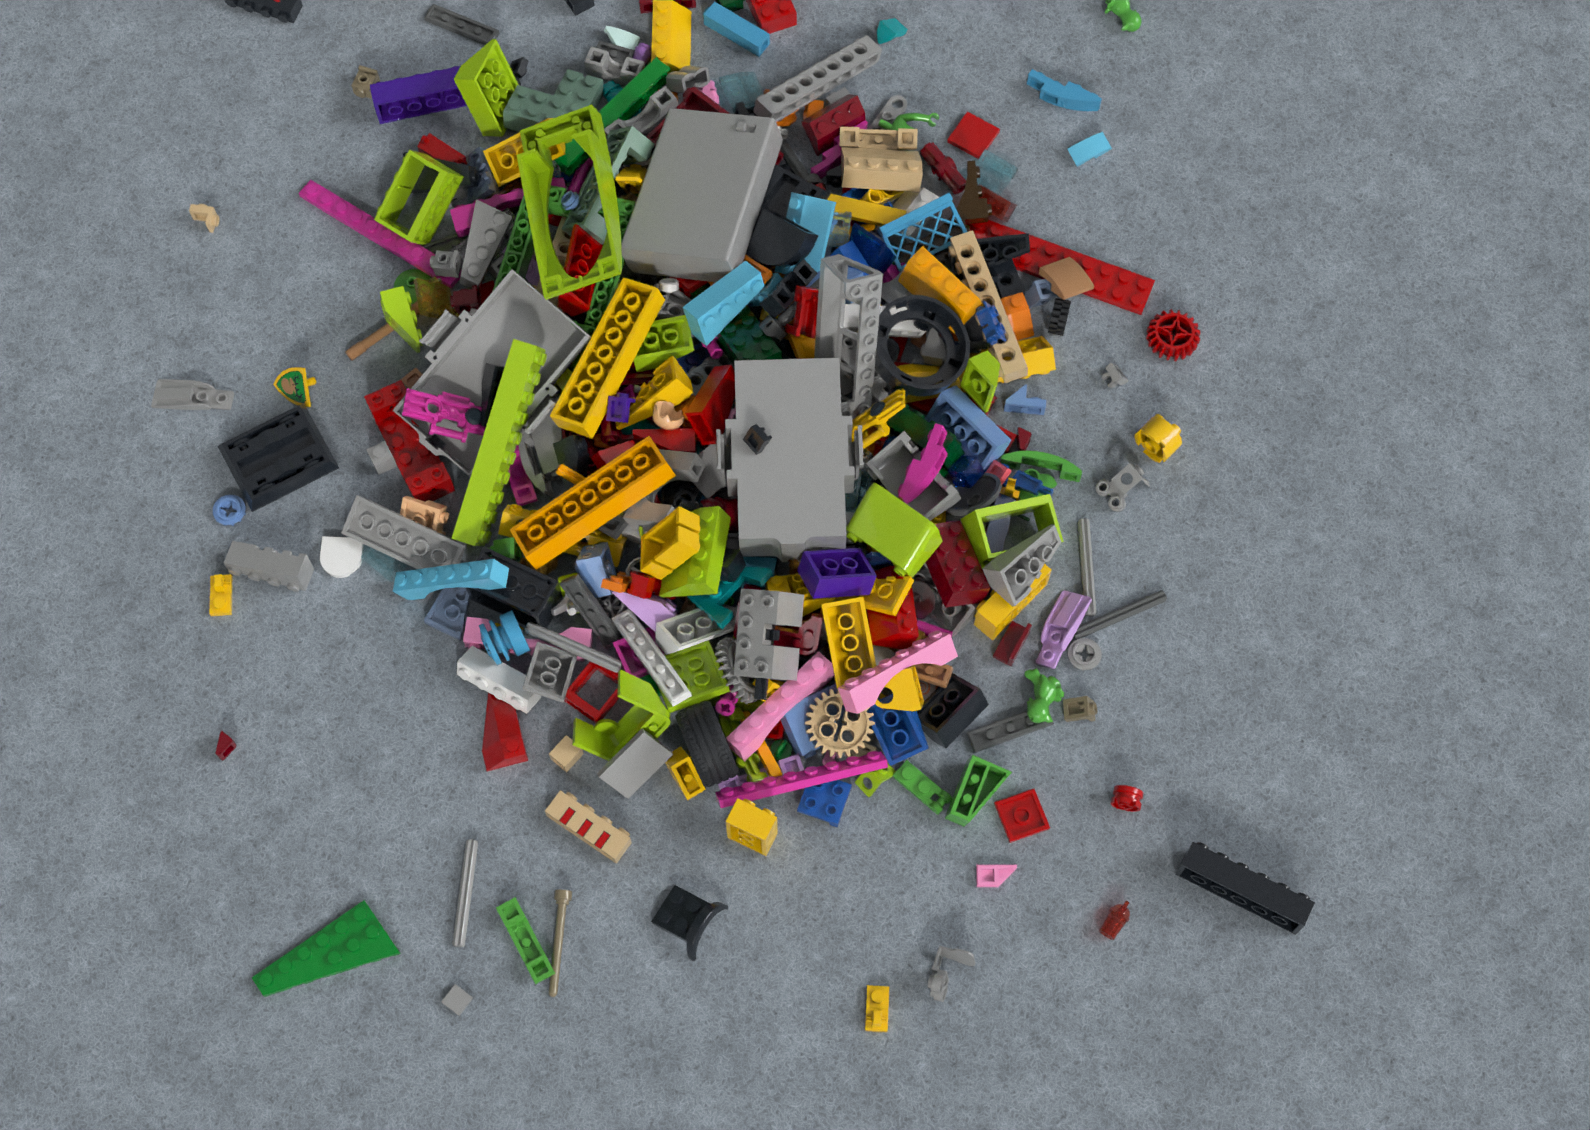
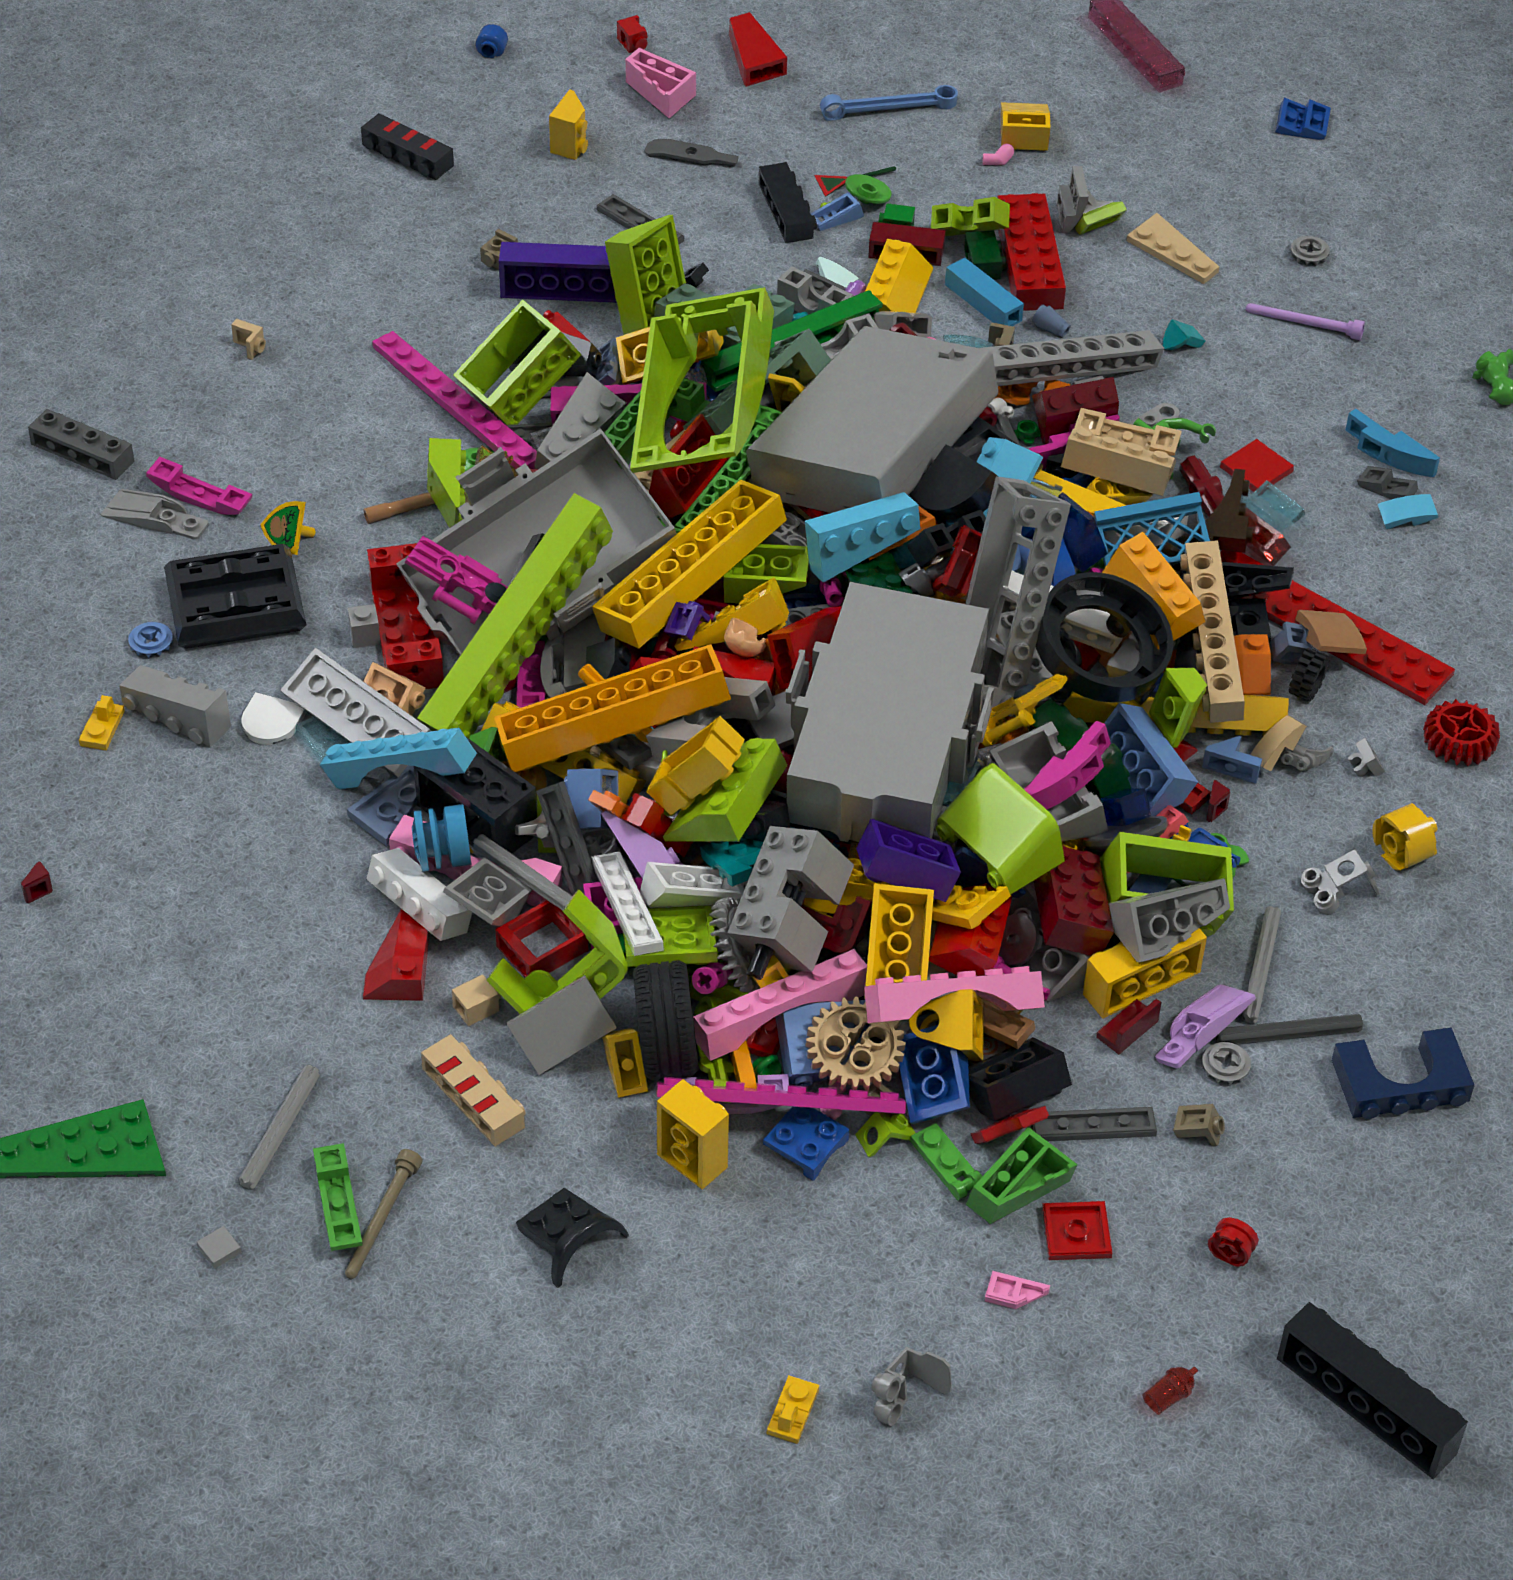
camera: 15 degrees right, 20 degrees down
(114, 349) = (81, 444): none -> dark grey brick
(216, 368) = (171, 479): none -> dark pink slope
(446, 263) = (524, 438): light grey brick -> none
(570, 200) = (704, 396): medium blue plate -> none
(669, 285) = (798, 515): white tile -> none
(756, 439) = (849, 666): black tile -> none
(762, 65) = (1001, 334): none -> dark tan bracket
(792, 41) = (1049, 320): none -> sand blue cone
(802, 143) = (1027, 431): none -> green plate
(962, 747) = (1013, 1123): none -> red tile
(995, 330) = (1207, 635): blue hinge -> none
(1044, 460) = (1239, 829): bright green slope -> none
(1045, 691) = (1155, 1090): bright green animal -> none
(1055, 376) = (1283, 734): none -> tan slope
(1064, 126) = (1383, 483): none -> dark grey slope
(1068, 387) = (1305, 758): none -> light grey helmet
(1185, 652) = (1373, 1094): none -> dark blue arch

